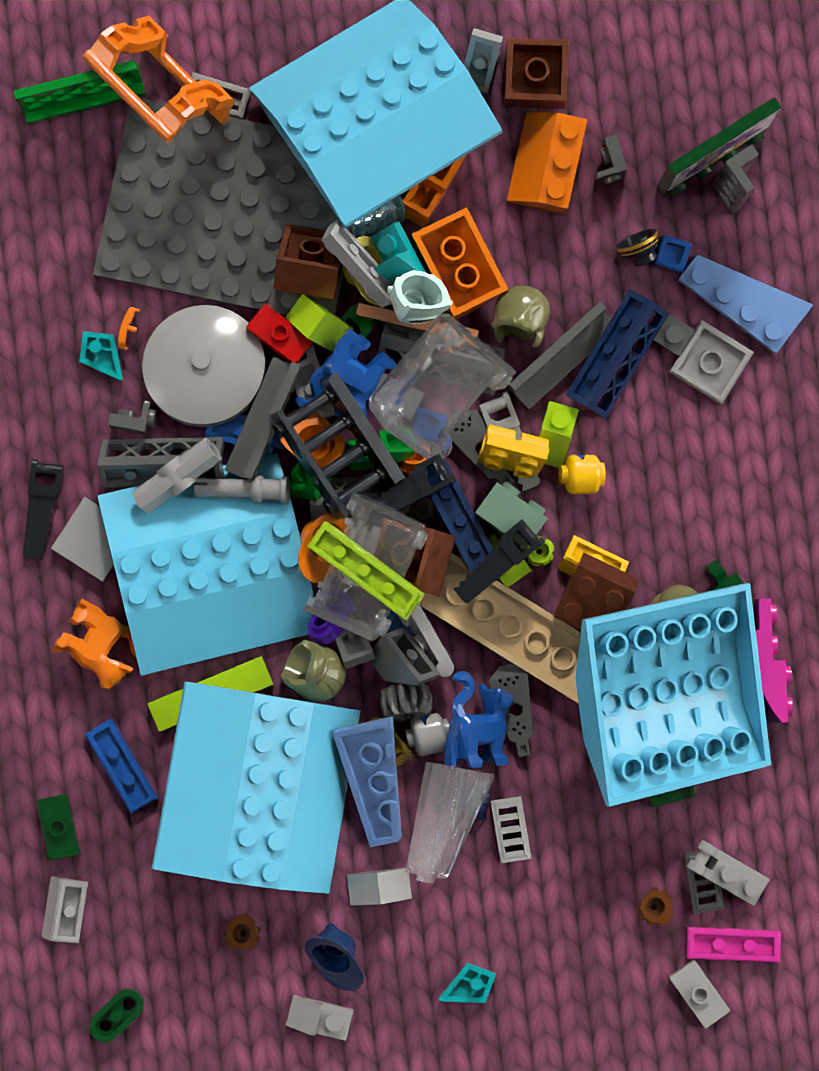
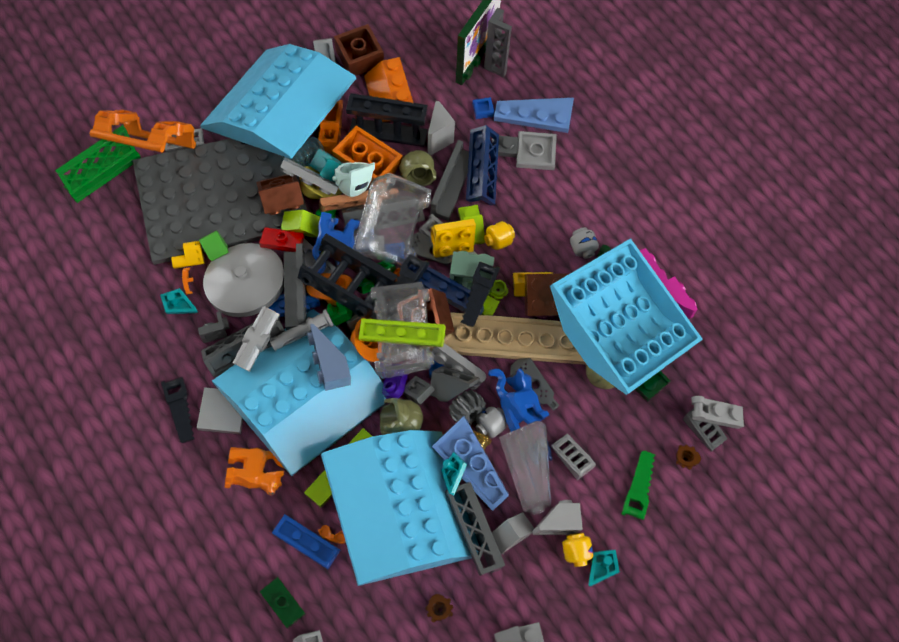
camera: 30 degrees left, 20 degrees down
(150, 293) = (192, 257): none -> yellow piece
(151, 767) = (326, 534): none -> orange piece
(185, 296) = (214, 245): none -> bright green slope
(256, 563) = (332, 363): none -> sand blue slope
(335, 958) = (509, 593): dark blue piece -> none
(340, 862) = (479, 526): none -> dark grey fence
(341, 781) = (453, 471): none -> teal piece
(446, 903) = (561, 520): none -> light grey slope
(448, 950) = (577, 549): none -> yellow head
(514, 221) = (390, 110): none -> black fence
(574, 911) = (639, 486): none -> green piece
(585, 270) = (440, 130): none -> light grey slope
(612, 156) = (425, 76): dark grey bracket -> none
(639, 247) = (465, 110): black piece -> none
(693, 545) = (584, 243): none -> light grey head
(699, 993) = (745, 497): light grey plate -> none
(733, 944) = (745, 457): dark pink tile -> none

